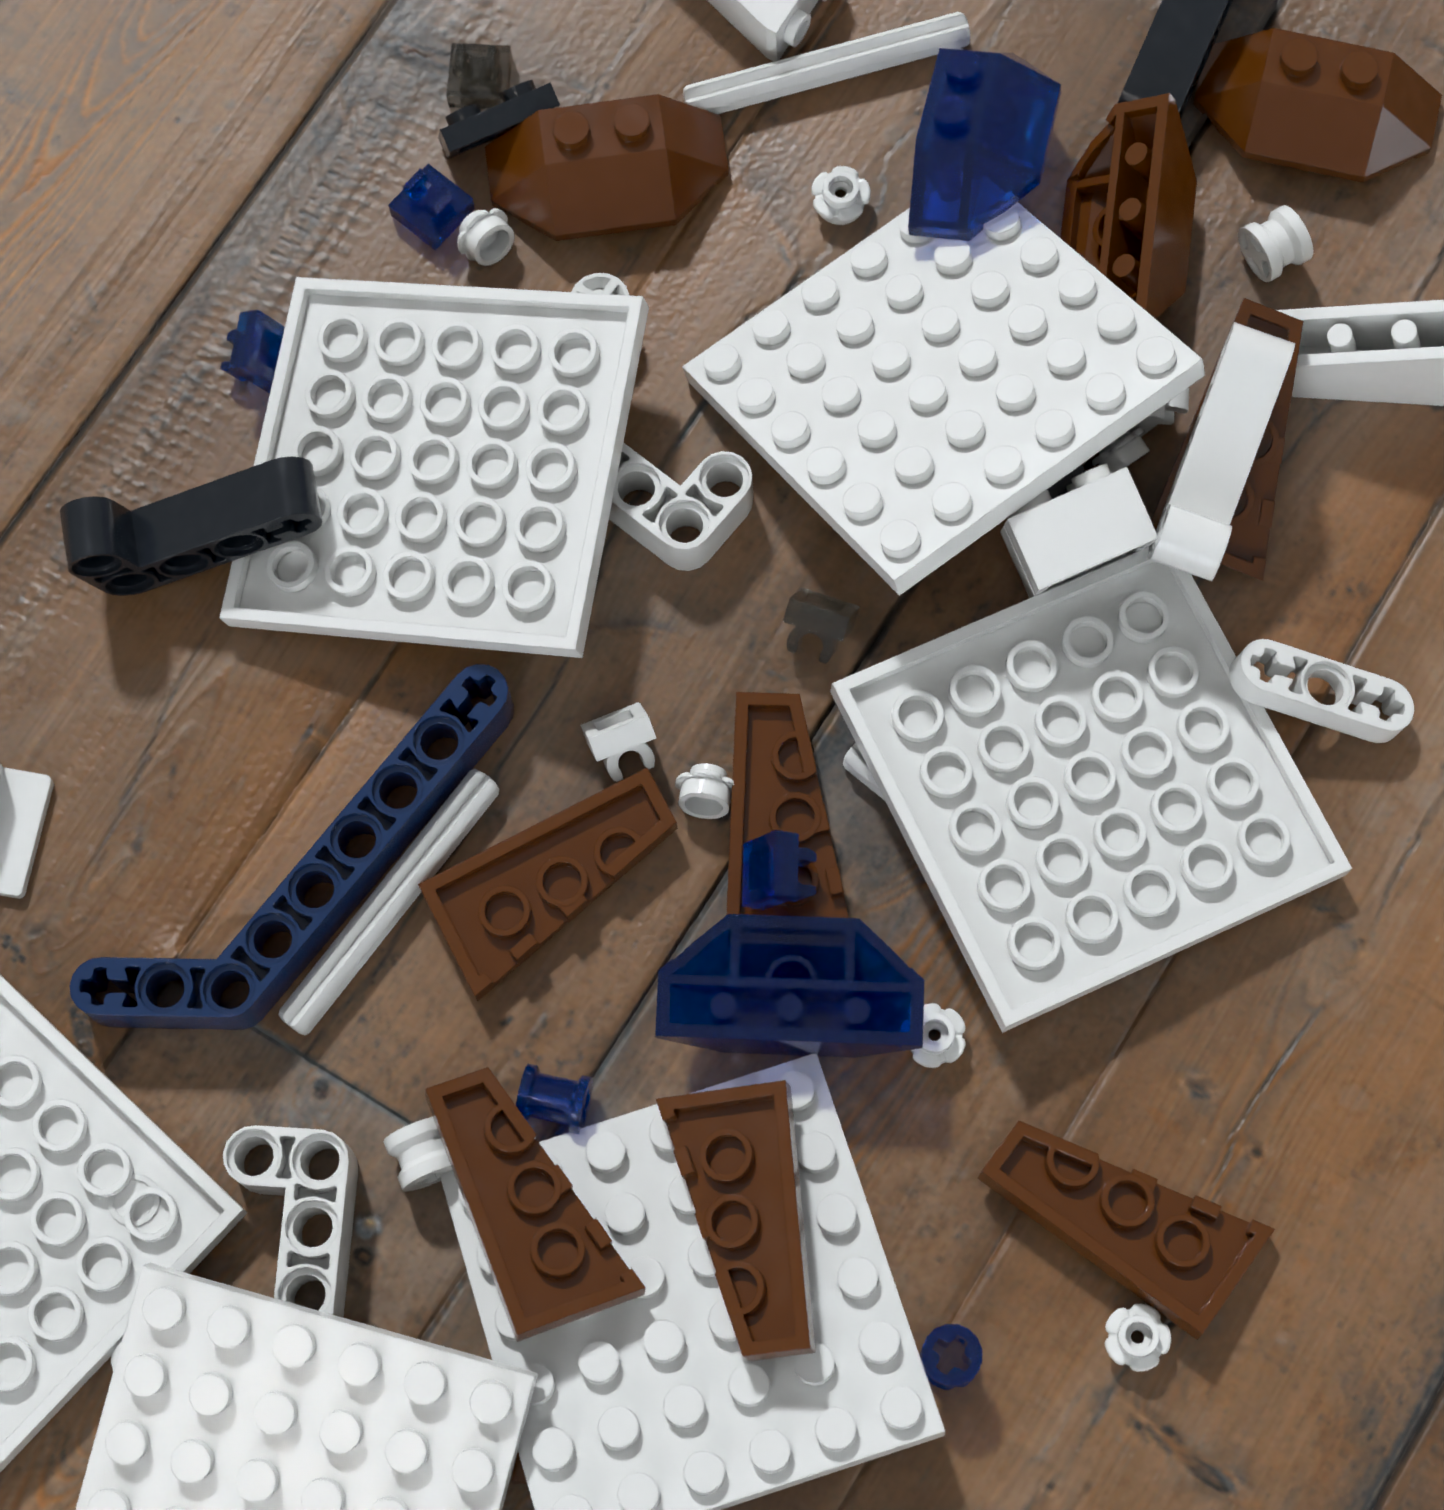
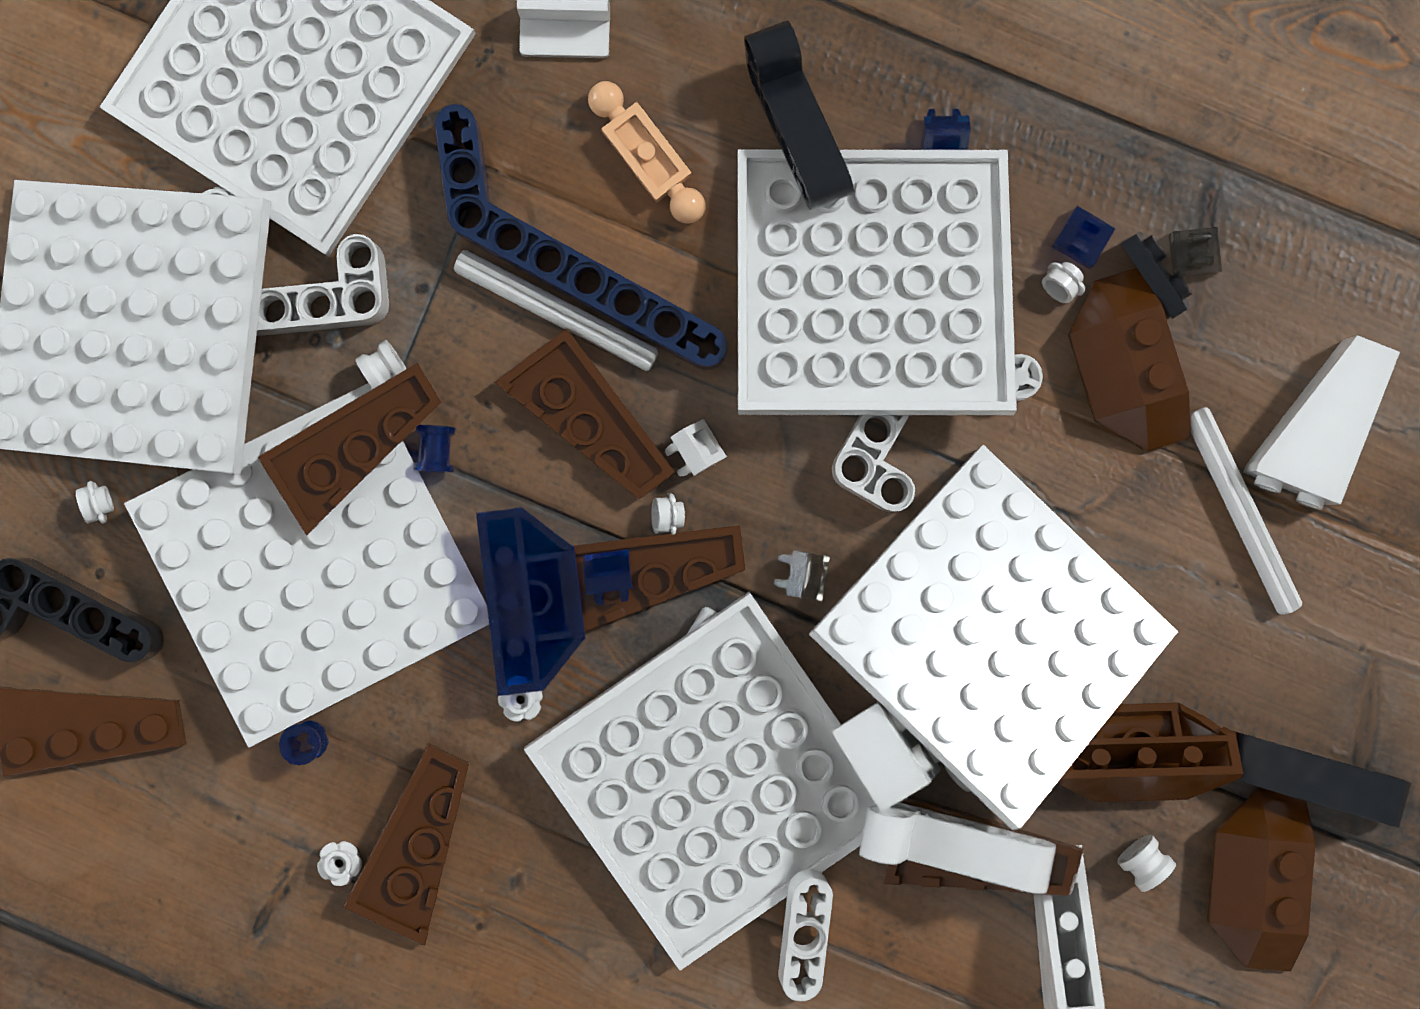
camera: 70 degrees right, 15 degrees up
(195, 741) = (646, 152): none -> light nougat plate
(746, 1193) = (382, 592): reddish brown wing -> none
(844, 209) = (1128, 543): white plate -> none
(979, 141) = (1192, 637): clear blue wedge -> none

